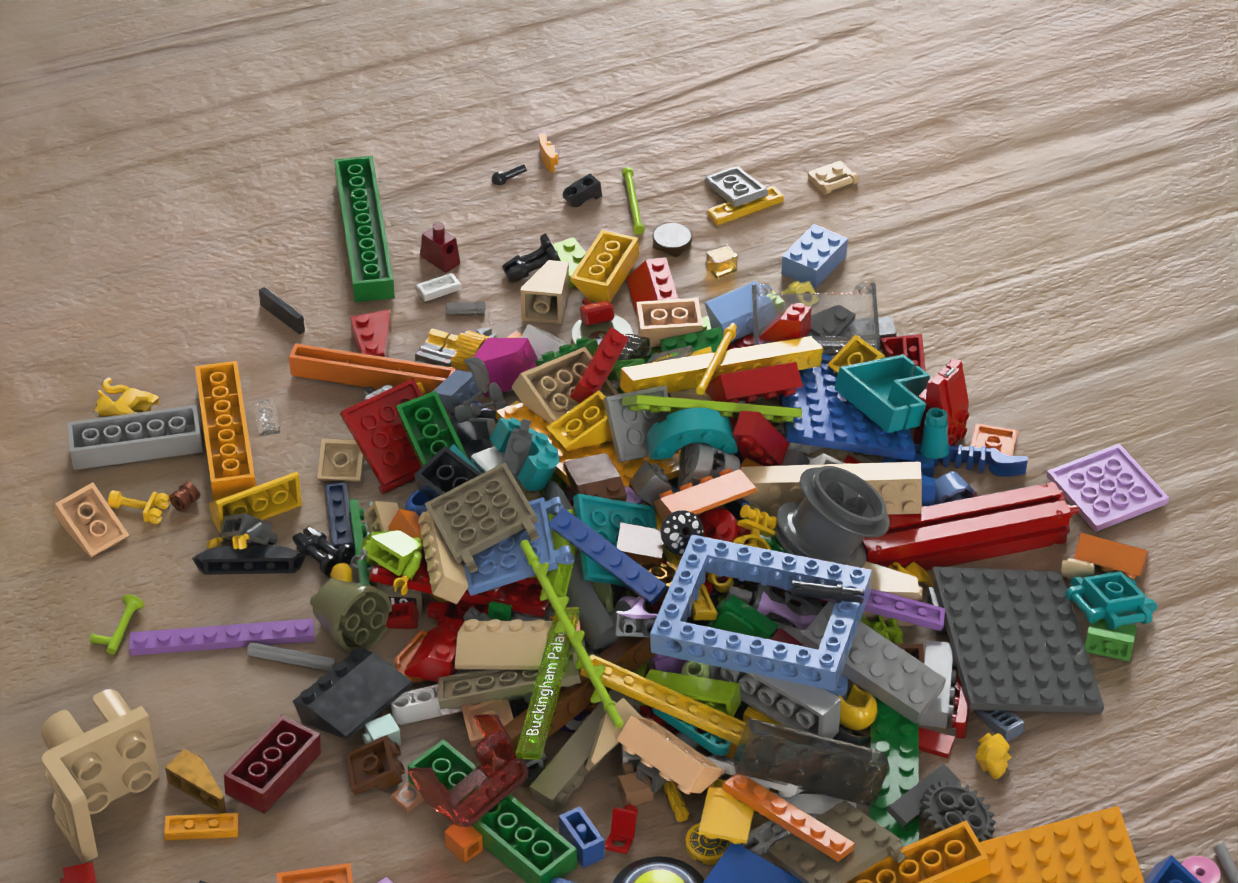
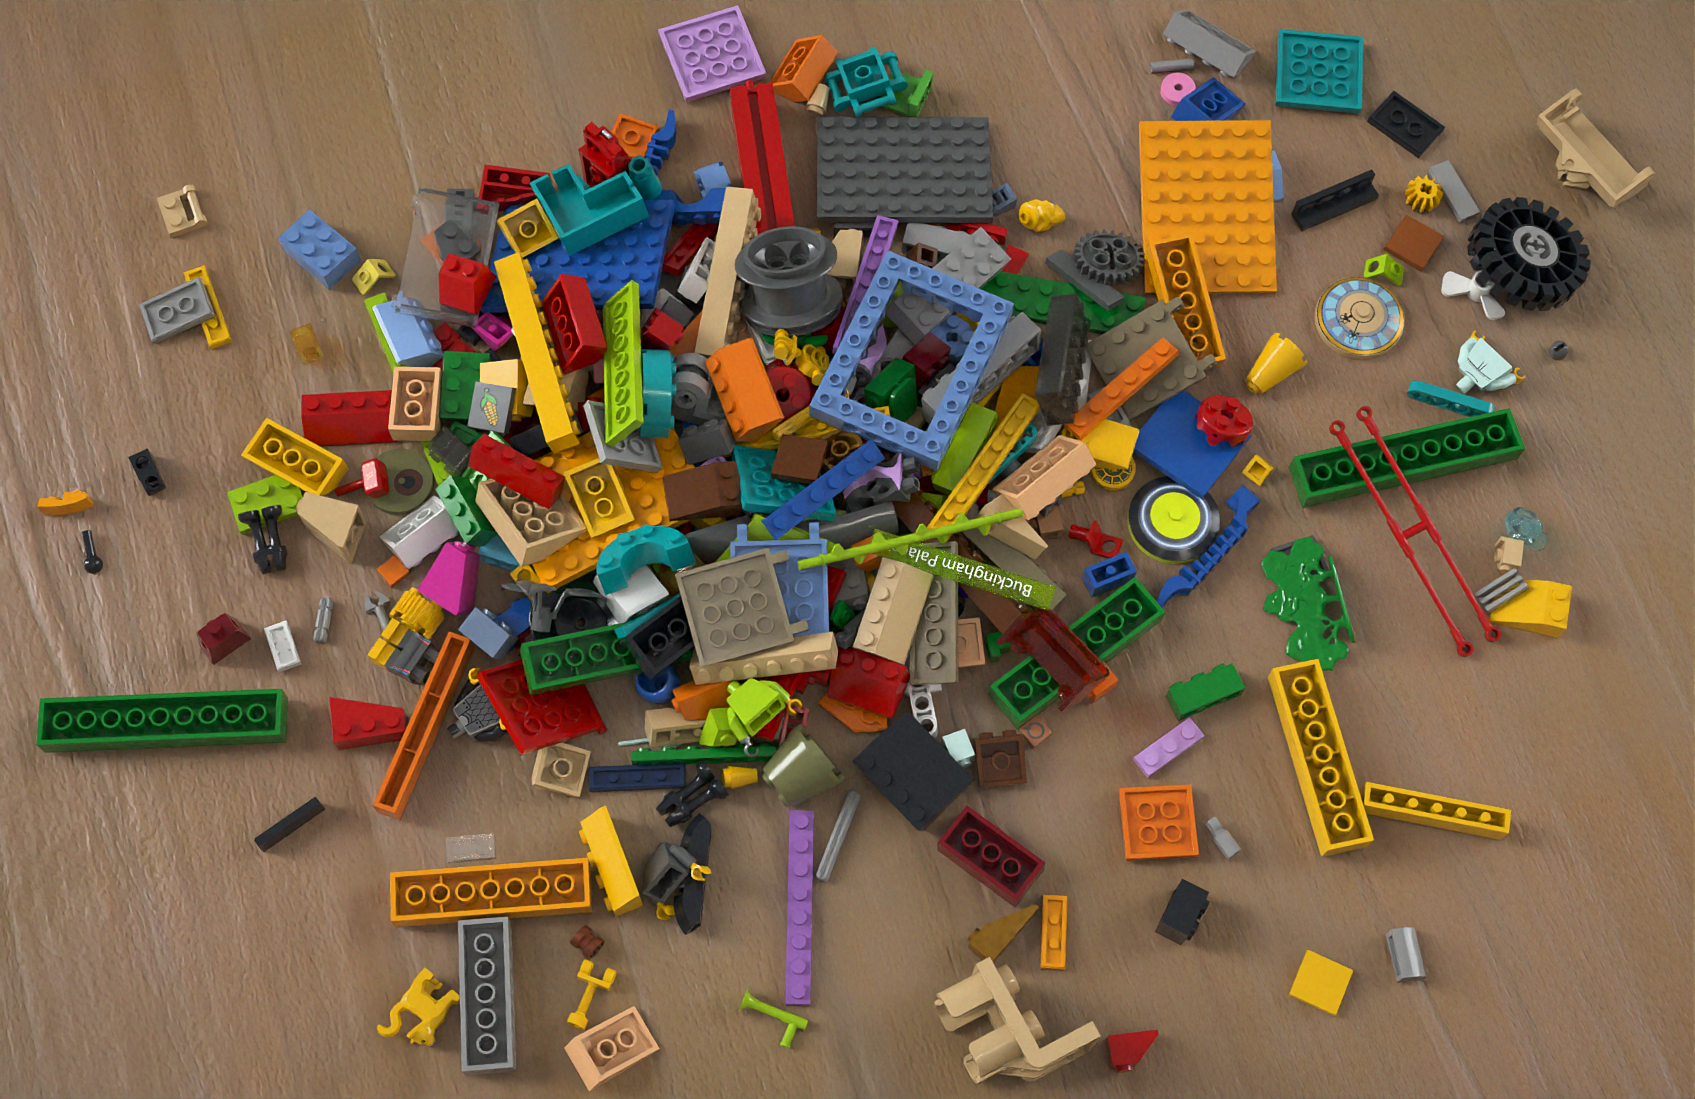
camera: 85 degrees left, 25 degrees up
(518, 448) = (641, 565): dark grey hinge -> none
(638, 227) = (223, 421): lime bar -> none
(672, 238) = (252, 388): tile -> none
(672, 530) = (794, 416): black dish -> none
(729, 334) = (489, 335): yellow bar -> none
(824, 591) = (923, 282): black pin -> none

